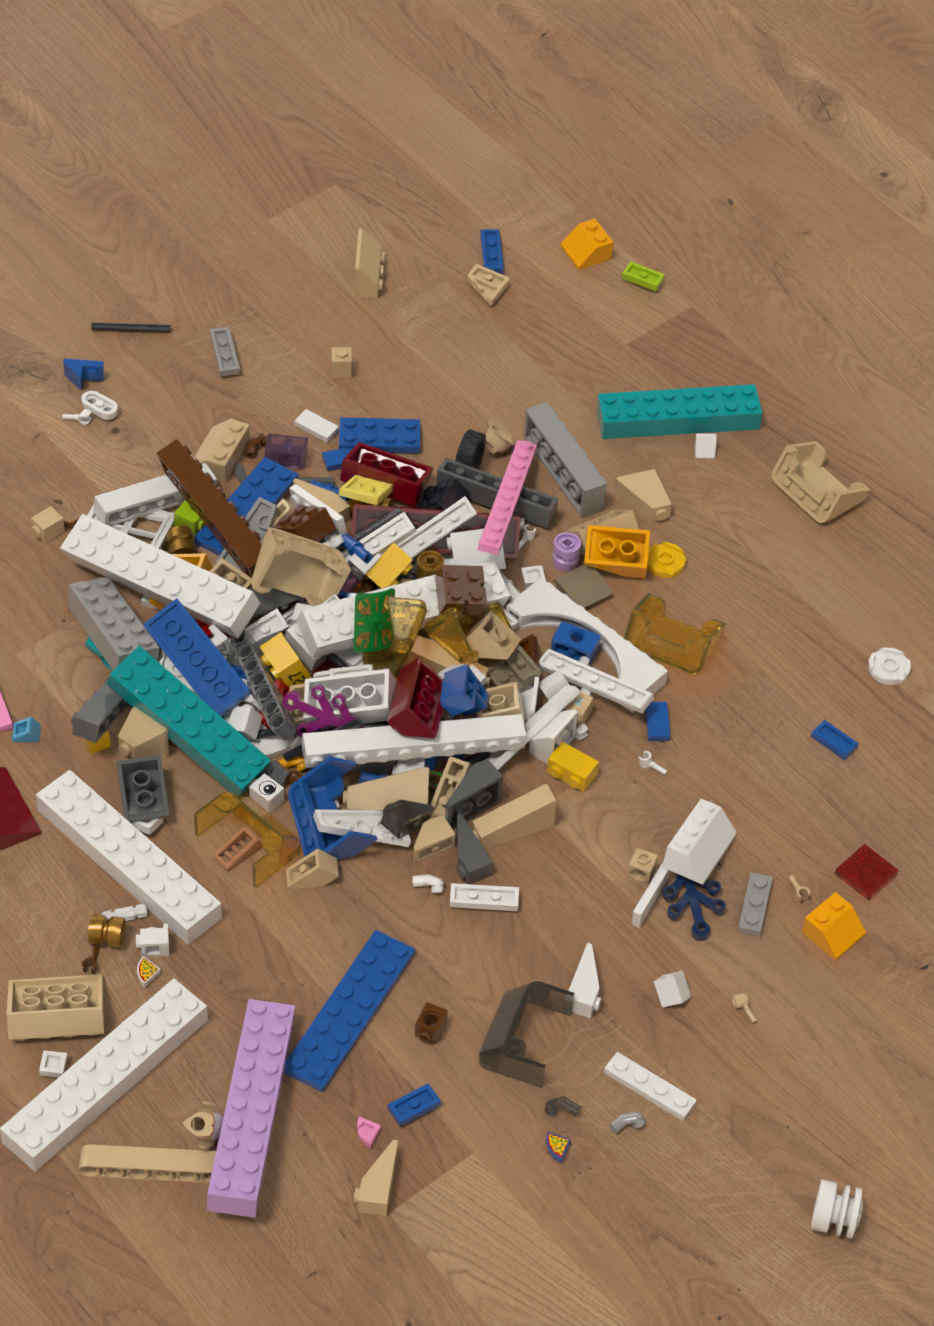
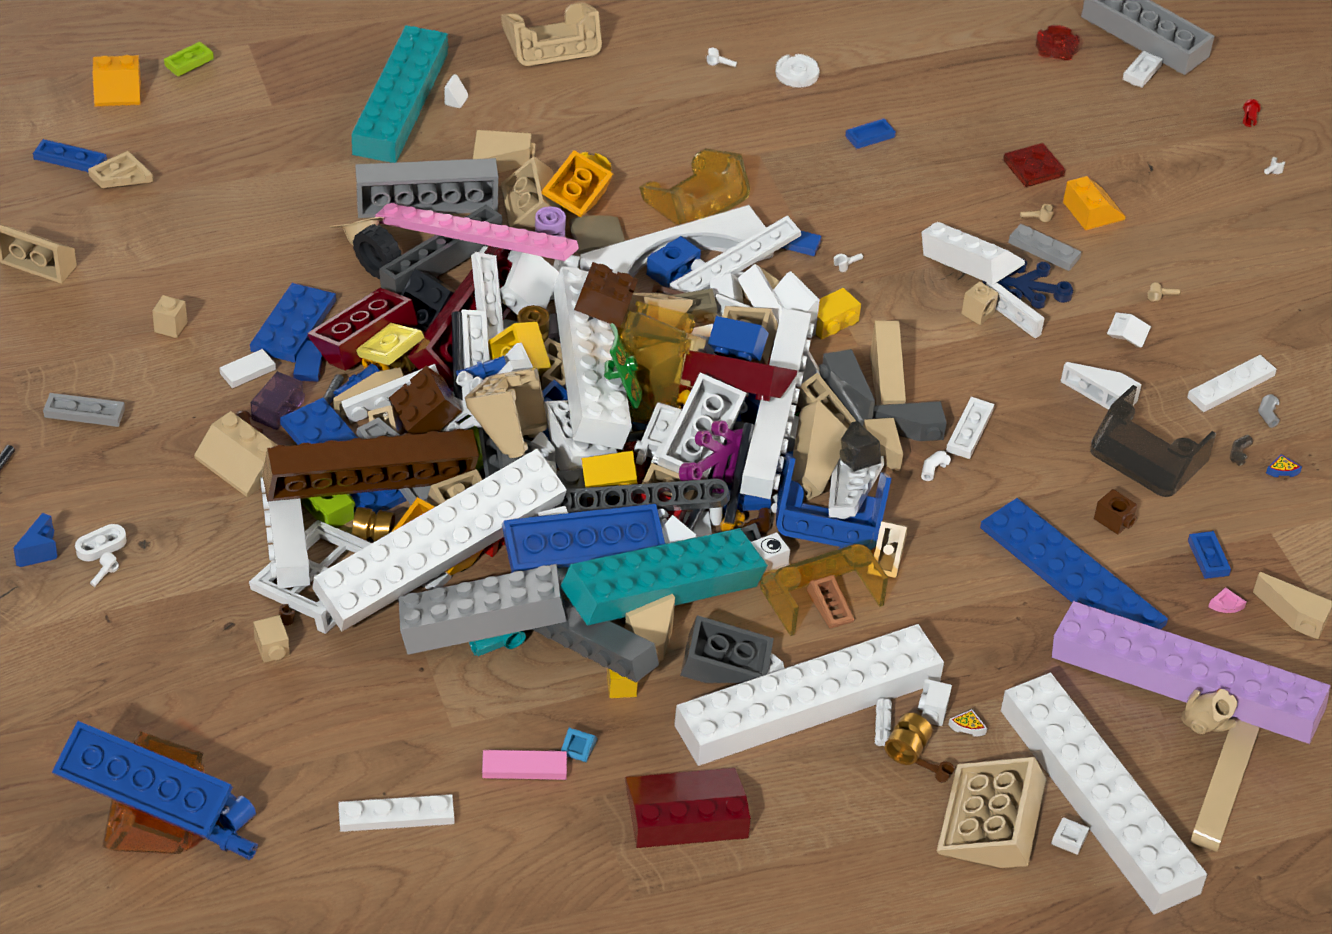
camera: 70 degrees left, 5 degrees down
(866, 602) = (714, 58): none -> white hand

